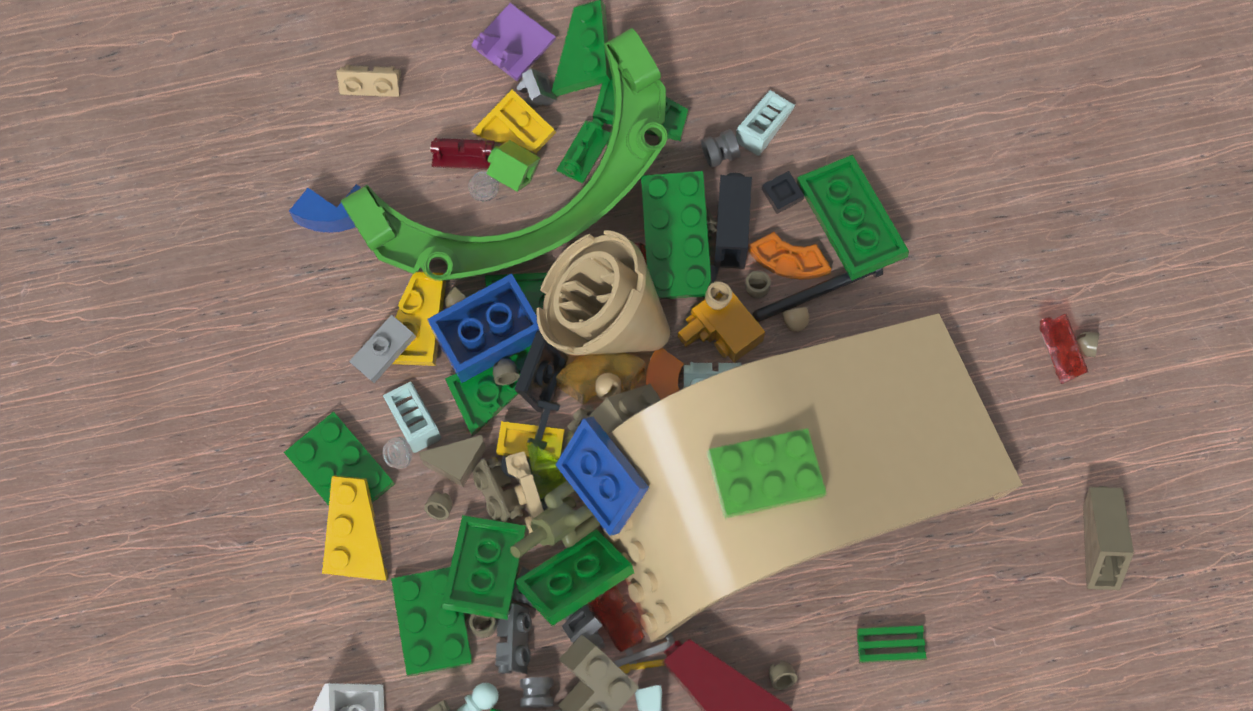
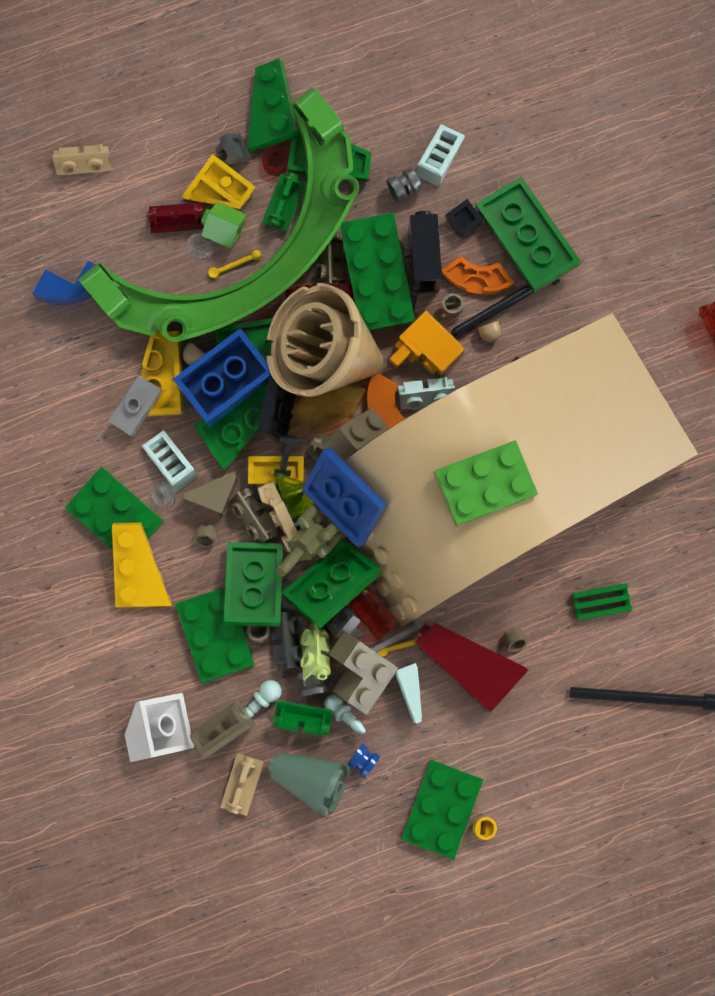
camera: 15 degrees left, 10 degrees up
(495, 217) = (214, 272): none -> yellow hinge
(505, 371) = (246, 413): dark tan hinge -> none
(513, 41) = (205, 107): medium lavender plate -> none
(544, 656) = (315, 644): none -> yellowish green hinge
(580, 107) = (275, 161): none -> clear red tile
(605, 382) = (334, 414): tan hinge -> none
(628, 207) = (327, 270): none -> dark tan hinge
(713, 291) = (416, 319): tan hinge -> none

